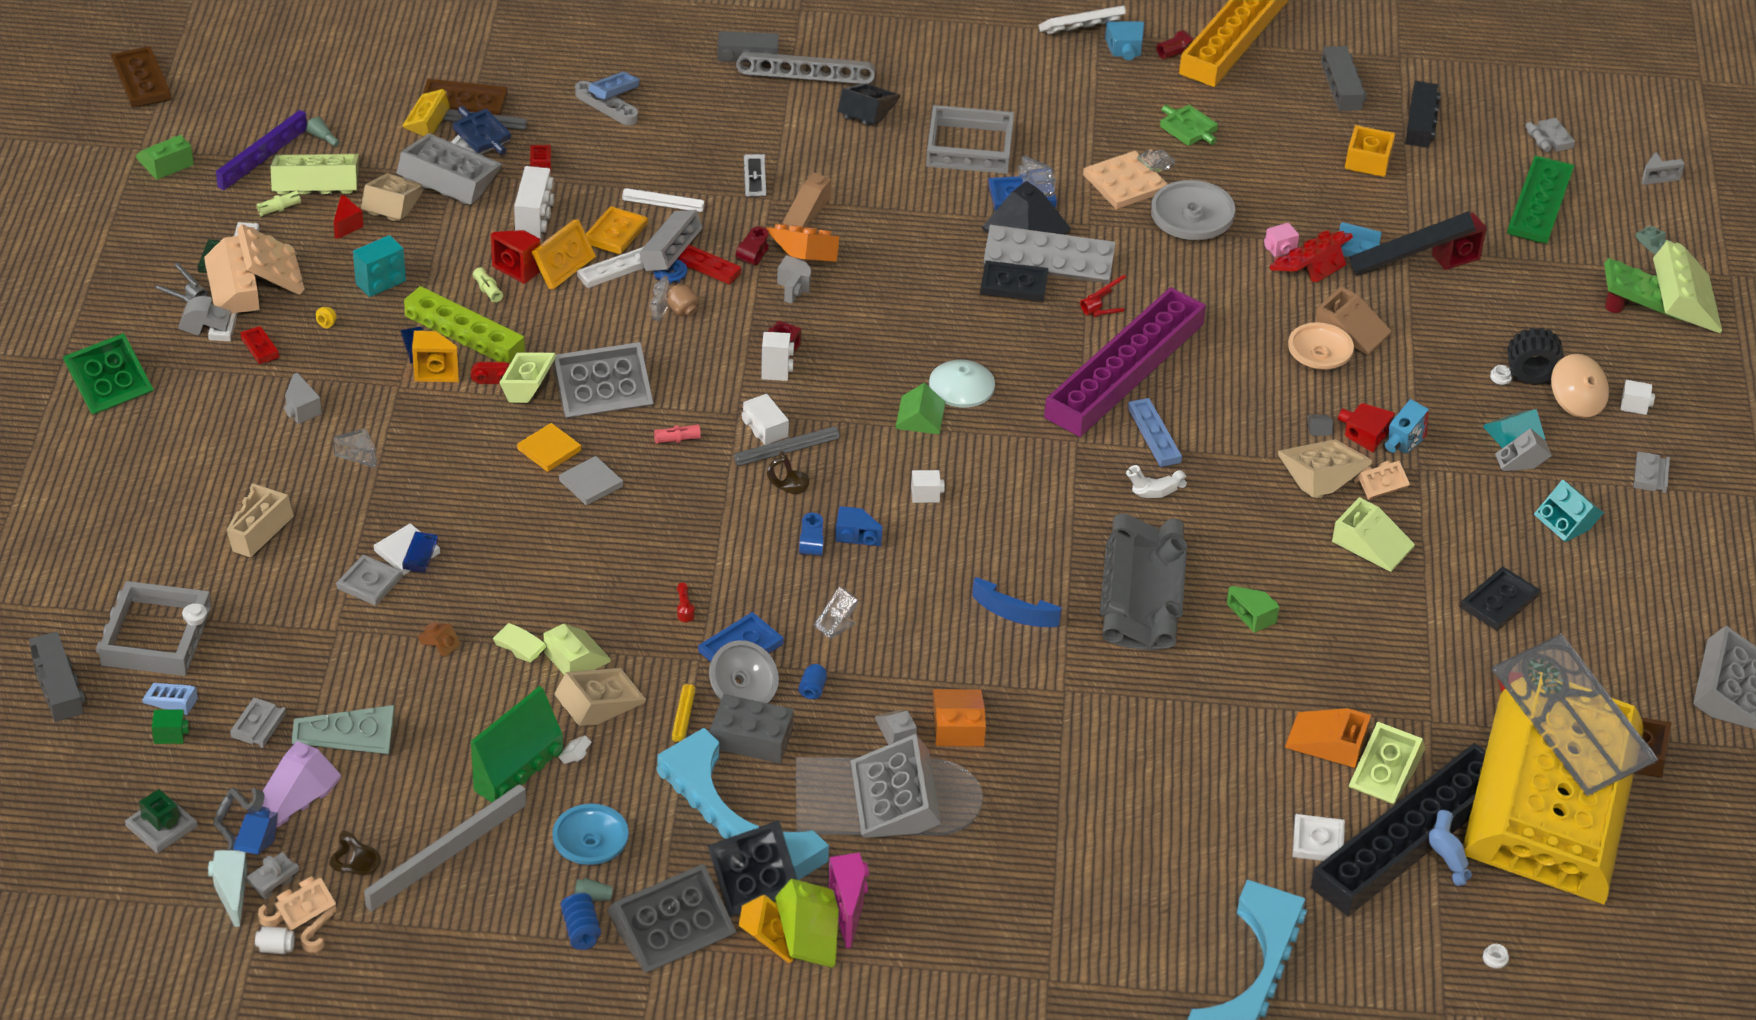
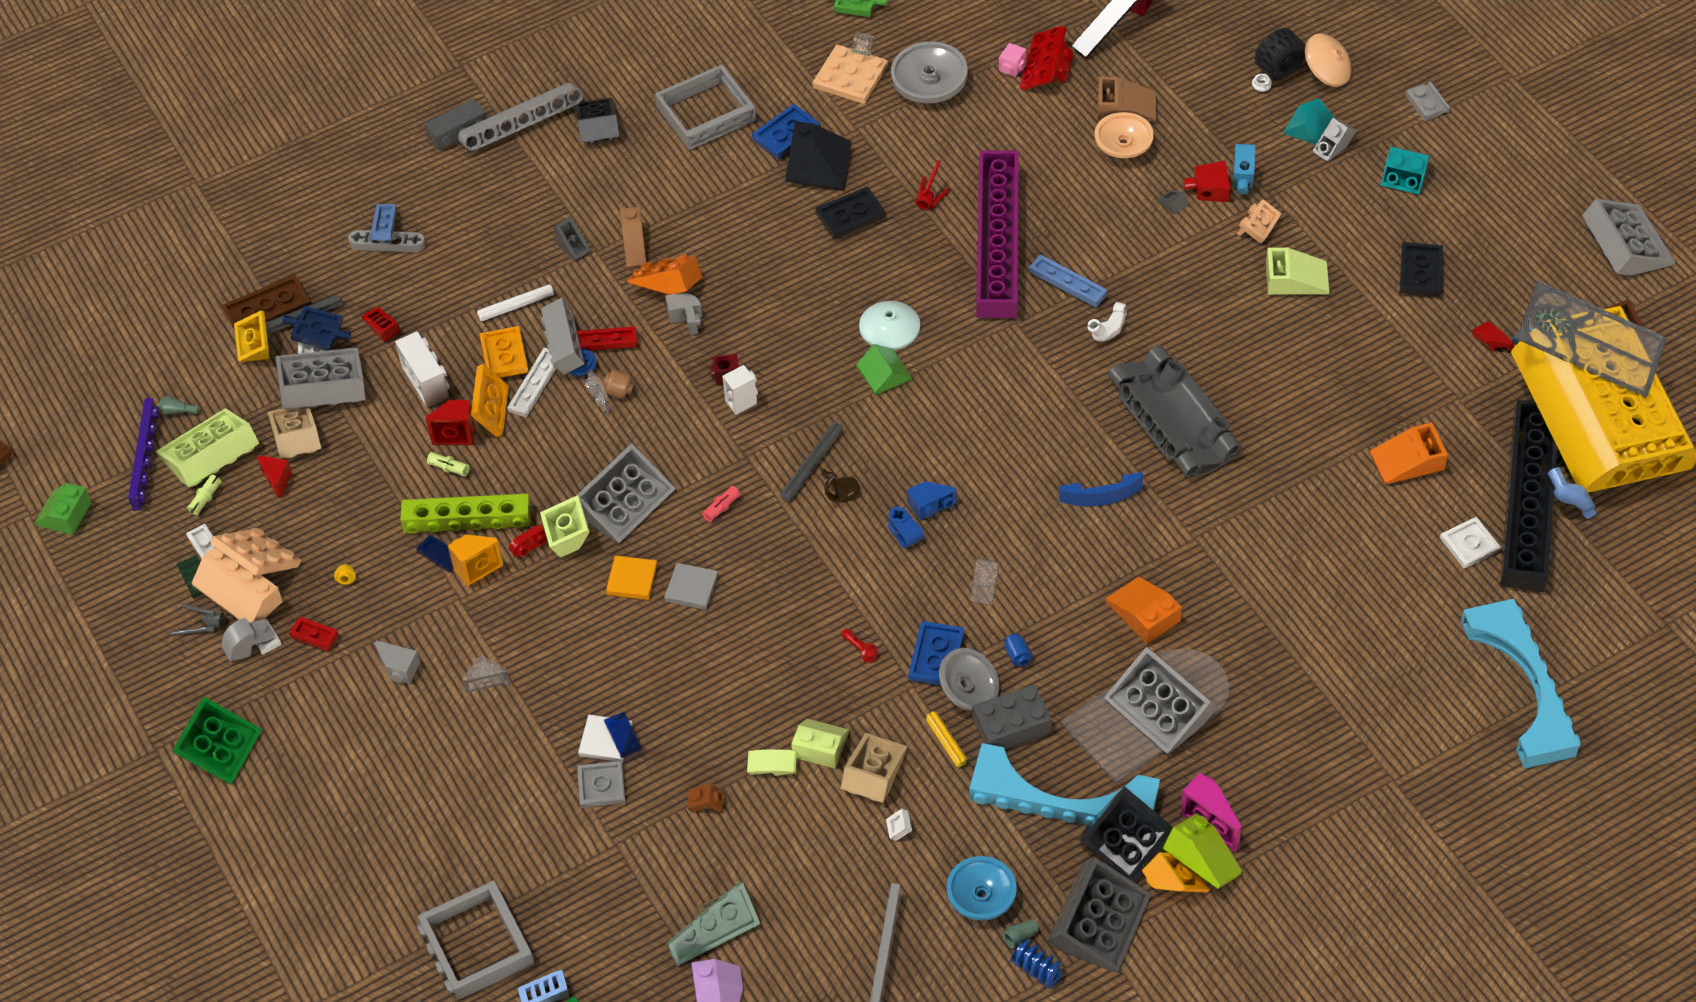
camera: 30 degrees left, 10 degrees up
(194, 614) = (505, 908): white plate -> none
(258, 520) = (469, 789): tan wedge -> none
(258, 722) = (635, 966): light grey plate -> none
(379, 266) = (351, 502): teal brick -> none
(515, 746) = (866, 857): green slope -> none
(753, 246) = (628, 301): dark red piece -> none
(765, 419) = (777, 449): white brick -> none
(896, 725) = (1112, 648): light grey slope -> none
(926, 486) = (948, 431): white brick -> none
(1038, 175) = (792, 110): clear slope -> none
(1062, 254) = (865, 168): light grey plate -> none
(1253, 607) = (1266, 384): bright green slope -> none
(1323, 466) = (1211, 234): tan slope -> none
(1362, 239) = (1073, 24): dark azure bracket -> none
(1387, 763) = (1468, 453): yellowish green slope -> none
(1496, 956) = (1665, 553): white plate -> none
(1637, 397) = (1368, 45): white brick -> none

